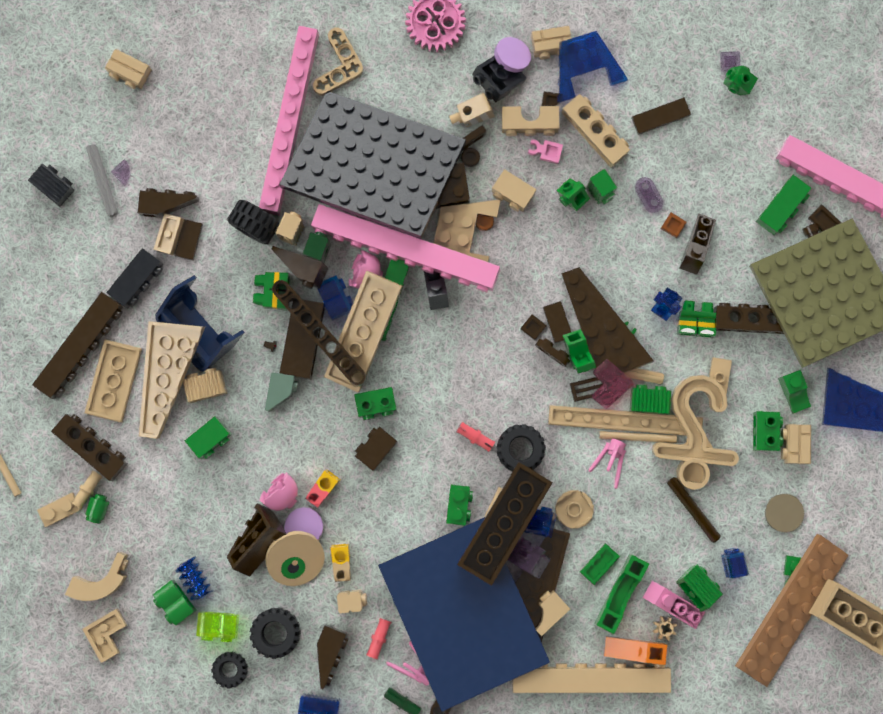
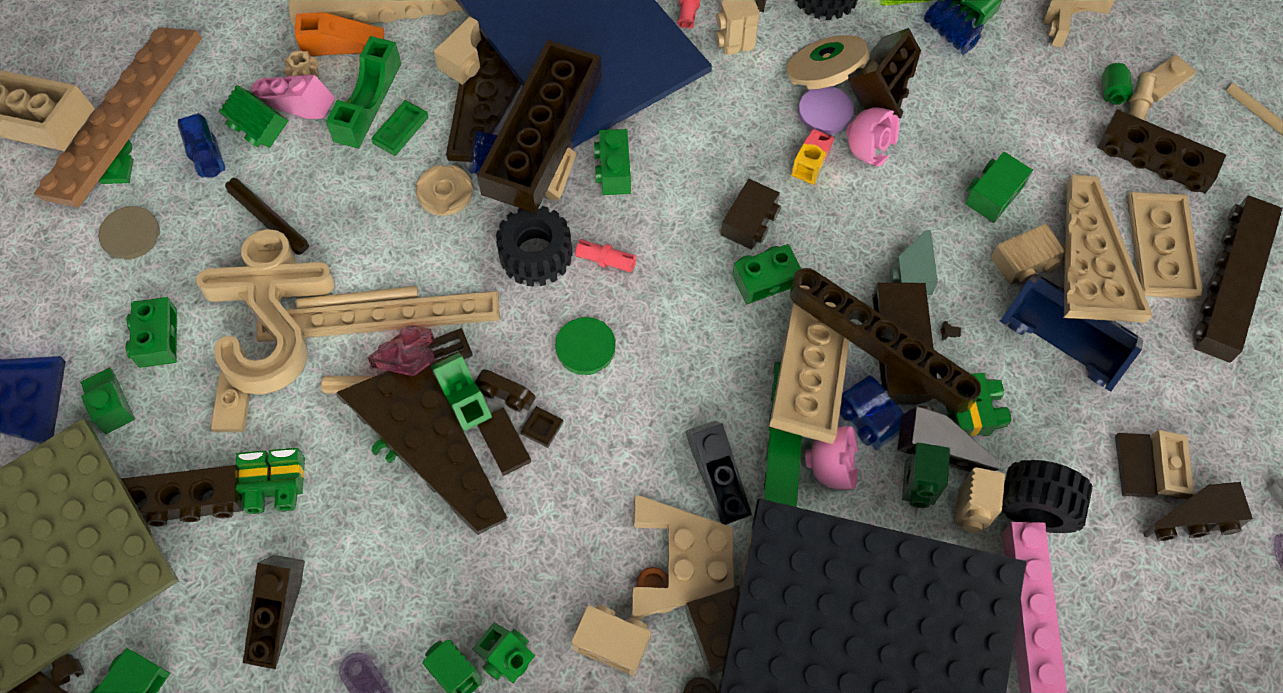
camera: 170 degrees right, 20 degrees down
(135, 279) = (1195, 386): black brick -> none
(341, 562) = (764, 76): leg -> none
(406, 248) = (736, 487): bright pink brick -> none
(498, 376) = (585, 345): none -> green tile
(529, 558) = (494, 102): clear purple brick -> none
(615, 450) = (390, 270): bright pink plant -> none
(650, 400) = (339, 346): green brick -> none
(666, 303) = (321, 493): clear blue brick -> none
(673, 225) = (318, 638): dark orange tile -> none
(796, 444) = (104, 322): tan brick -> none

